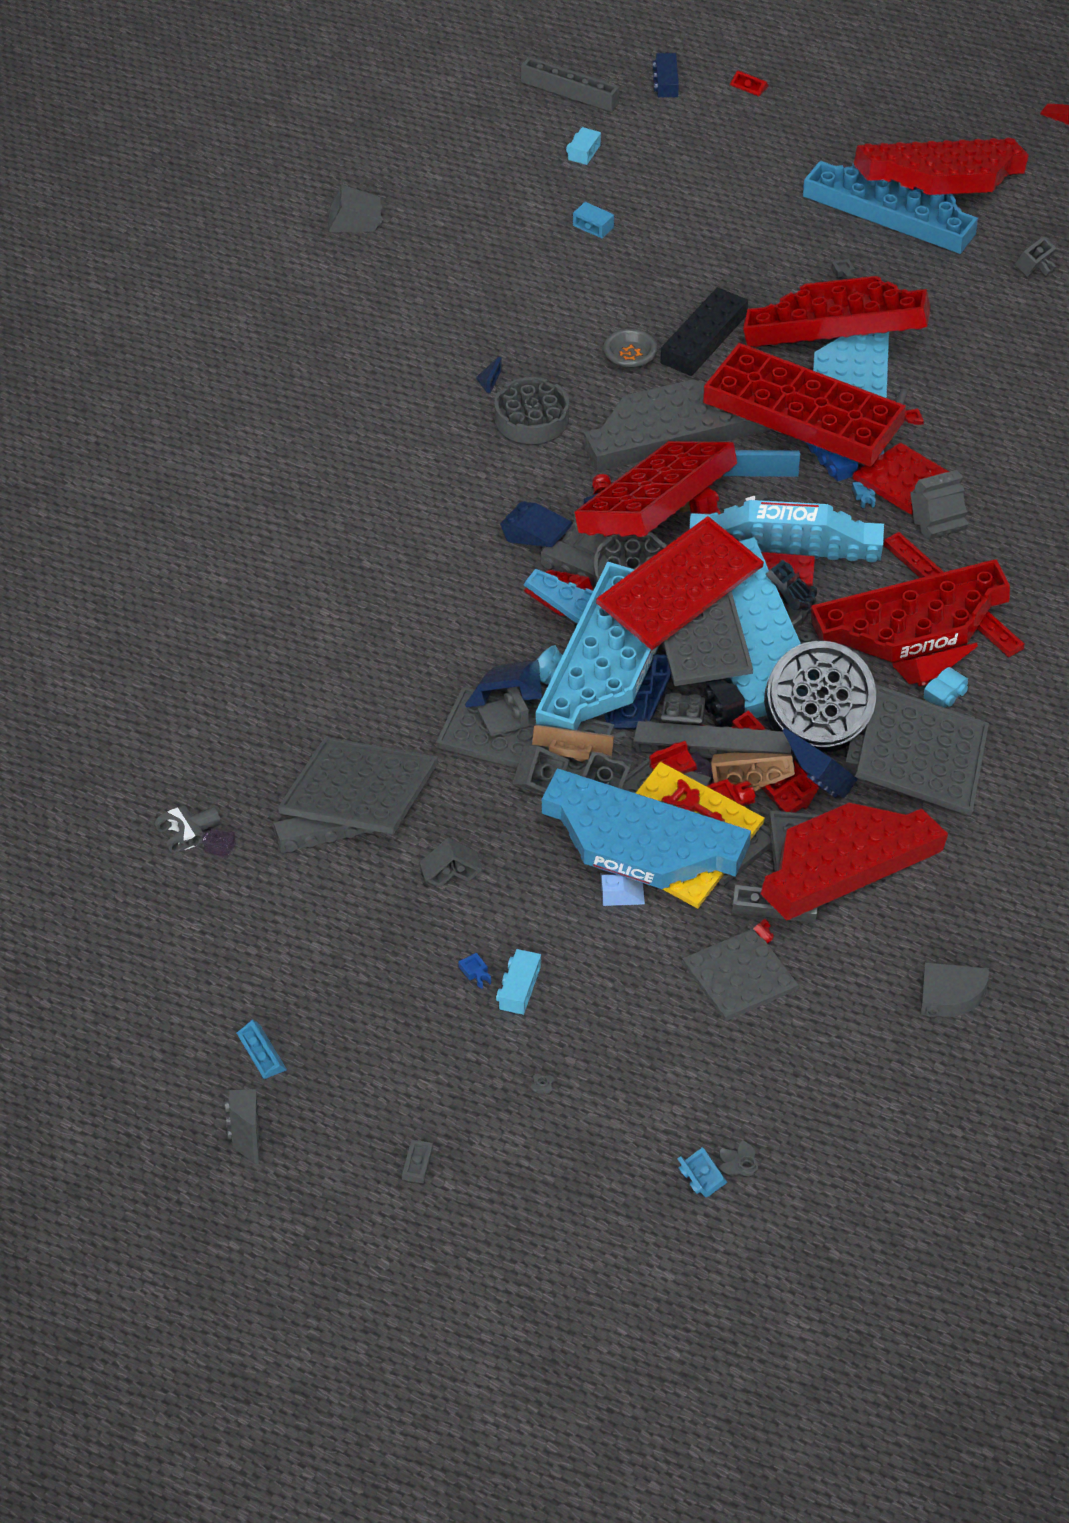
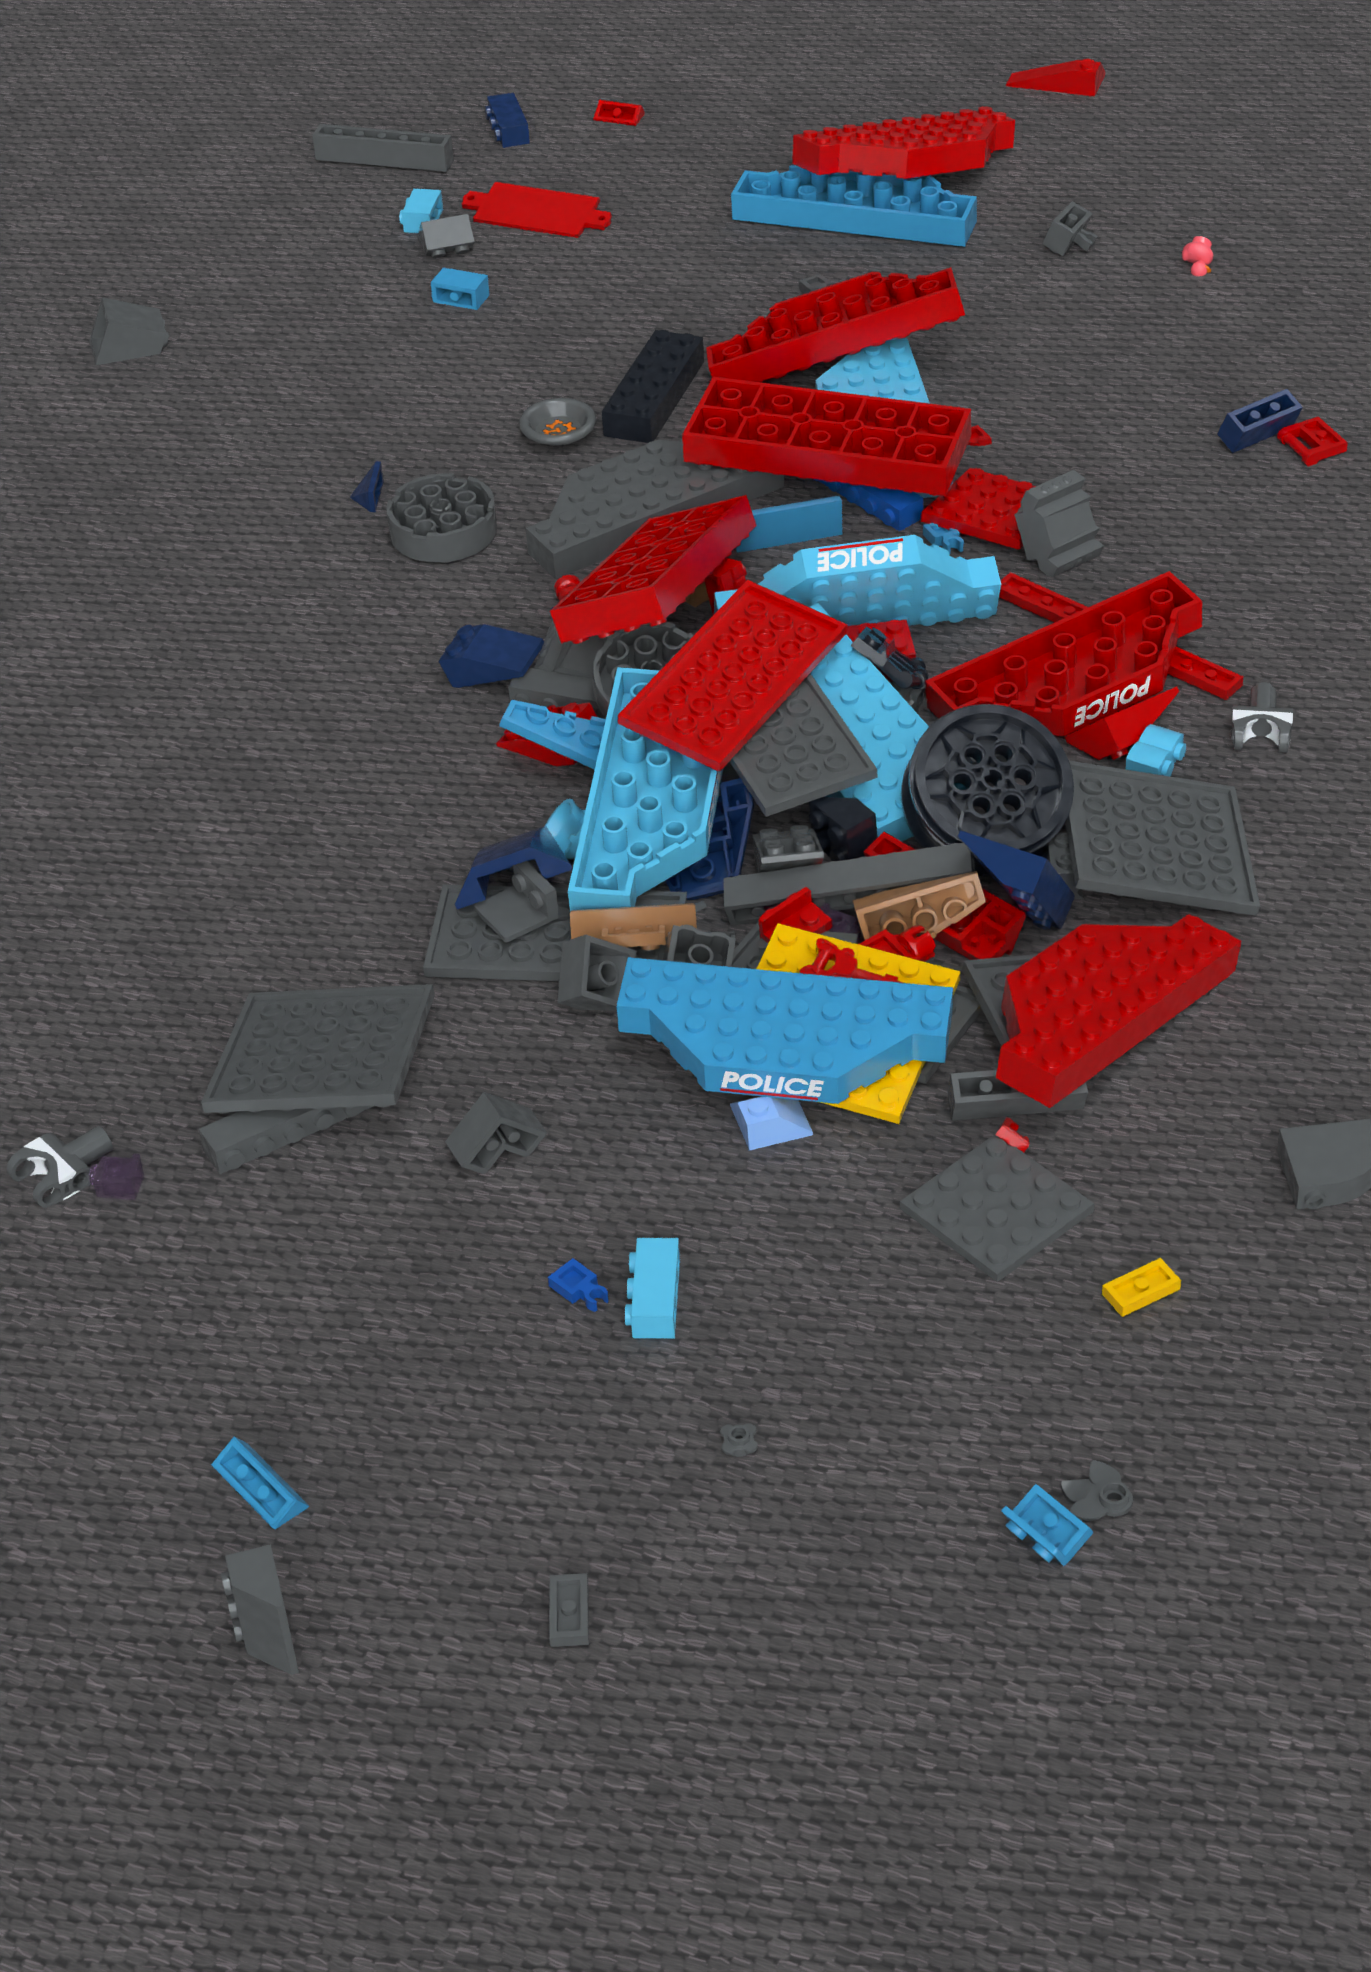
camera: 10 degrees left, 5 degrees down
(595, 173) = (446, 235): none -> slope
(666, 160) = (537, 209): none -> red piece
(808, 1043) = (1141, 1287): none -> yellow plate
(1025, 677) = (1262, 719): none -> dark grey connector

